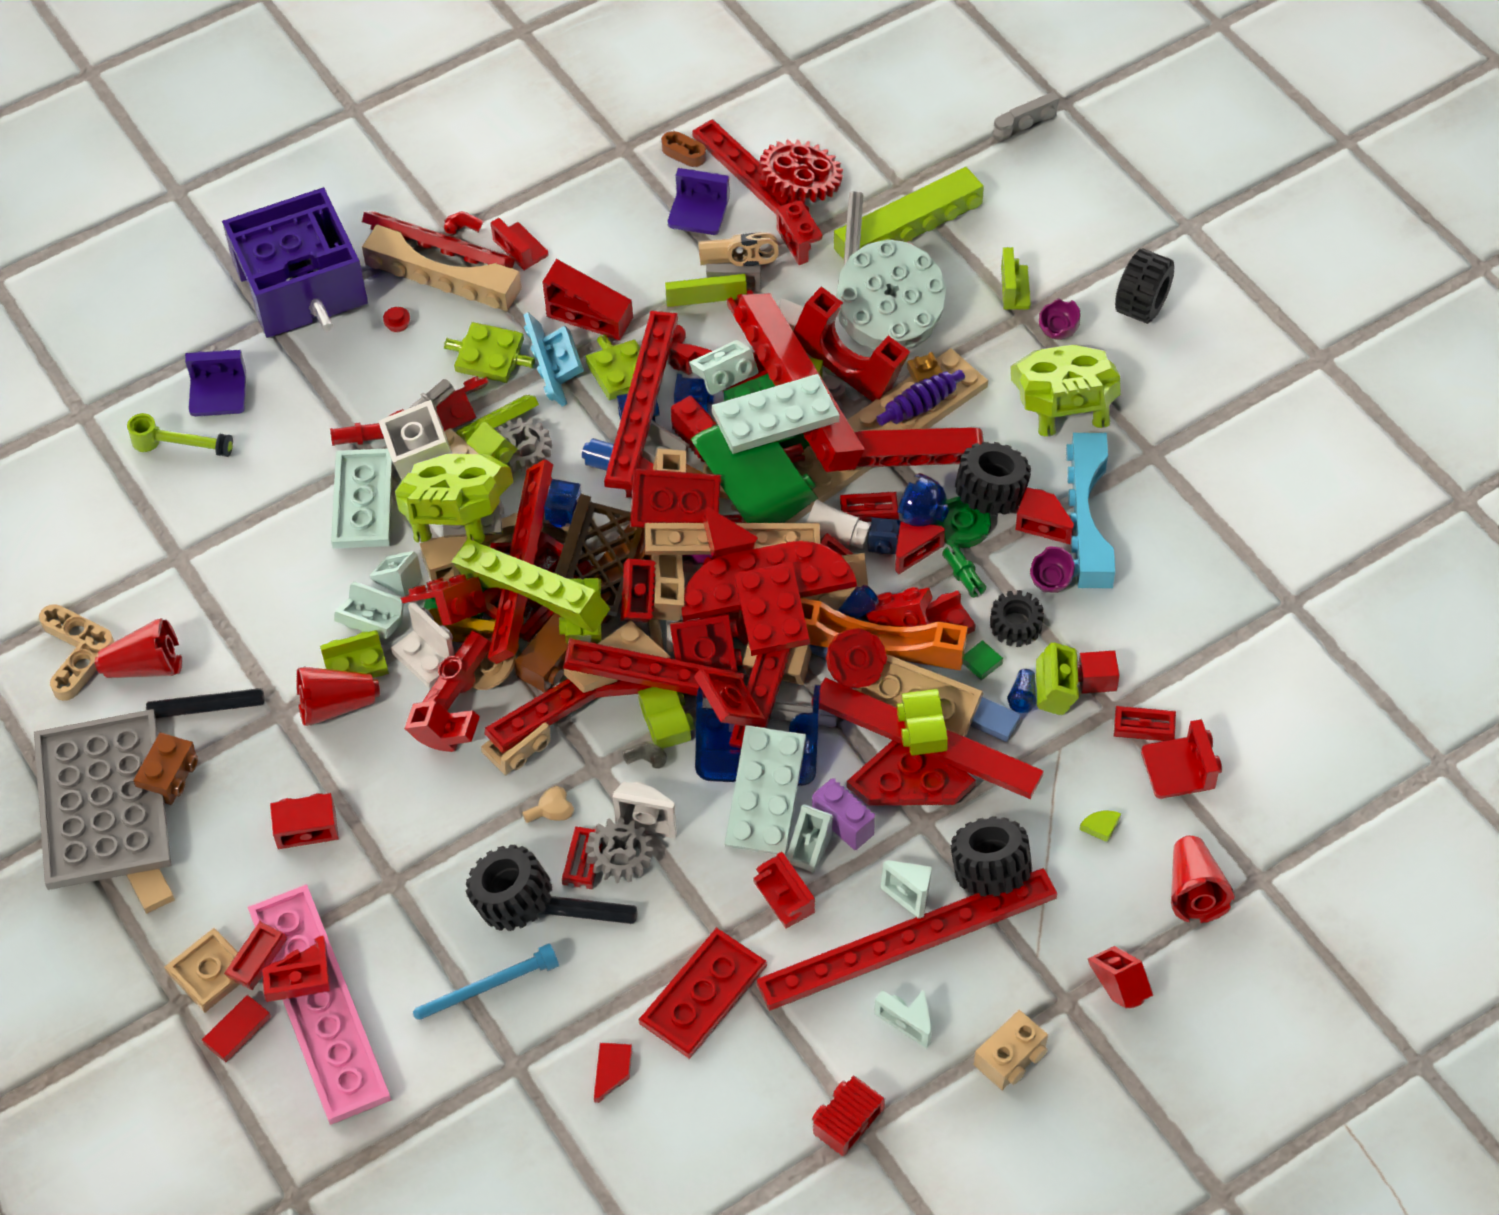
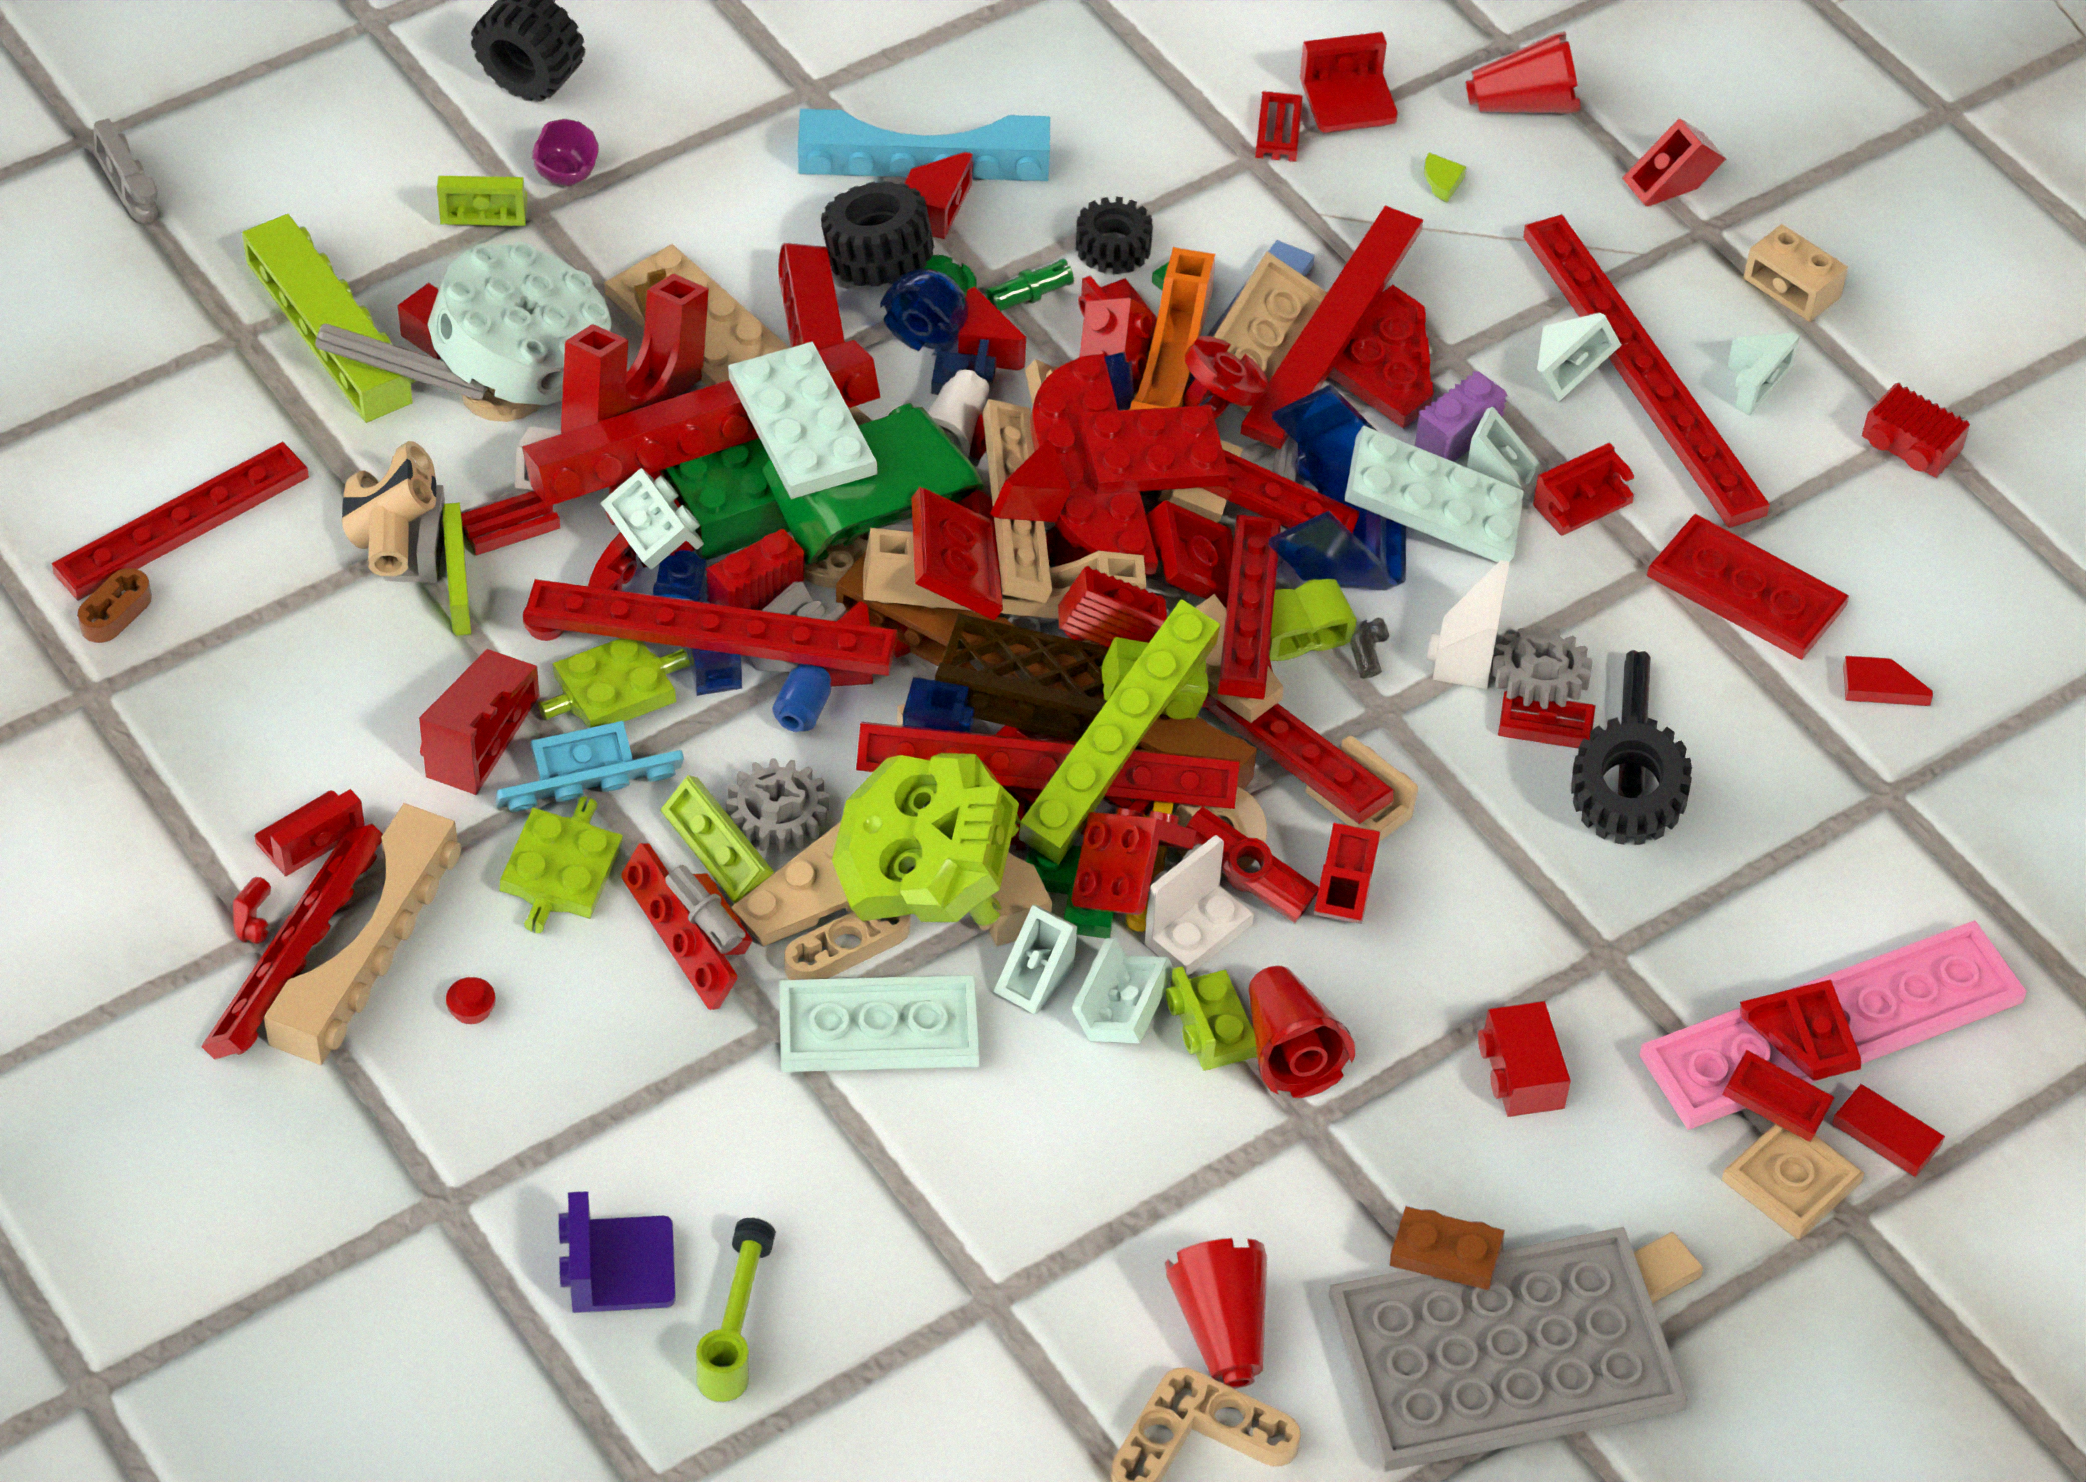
camera: 95 degrees left, 5 degrees down
(207, 703) = (1303, 1223): black axle -> none
(273, 246) = (361, 1102): dark purple piece -> none
(356, 434) = (736, 1037): red pin -> none
(414, 437) = (794, 917): white brick -> none
(491, 442) = (804, 817): lime brick -> none
(543, 959) = (1724, 754): dark azure piece -> none
(551, 806) = (1464, 757): tan rock -> none
(699, 201) = (257, 579): dark purple bracket -> none
(729, 698) = (1312, 501): red tile -> none
(797, 230) = (346, 444): red bracket -> none
(800, 170) = (205, 442): red gear -> none
(869, 509) = (903, 361): red tile -> none
(920, 397) = (728, 301): dark purple piece -> none
(923, 722) = (1328, 306): lime brick -> none
(991, 856) = (1516, 237): black tyre -> none
(1023, 692) = (1238, 234): clear blue cone -> none
(1052, 570) = (1036, 186): magenta hair -> none
(1057, 678) = (1227, 191): lime brick -> none
(1066, 383) = (699, 146): lime brick -> none
(1098, 672) = (1205, 156): red brick -> none

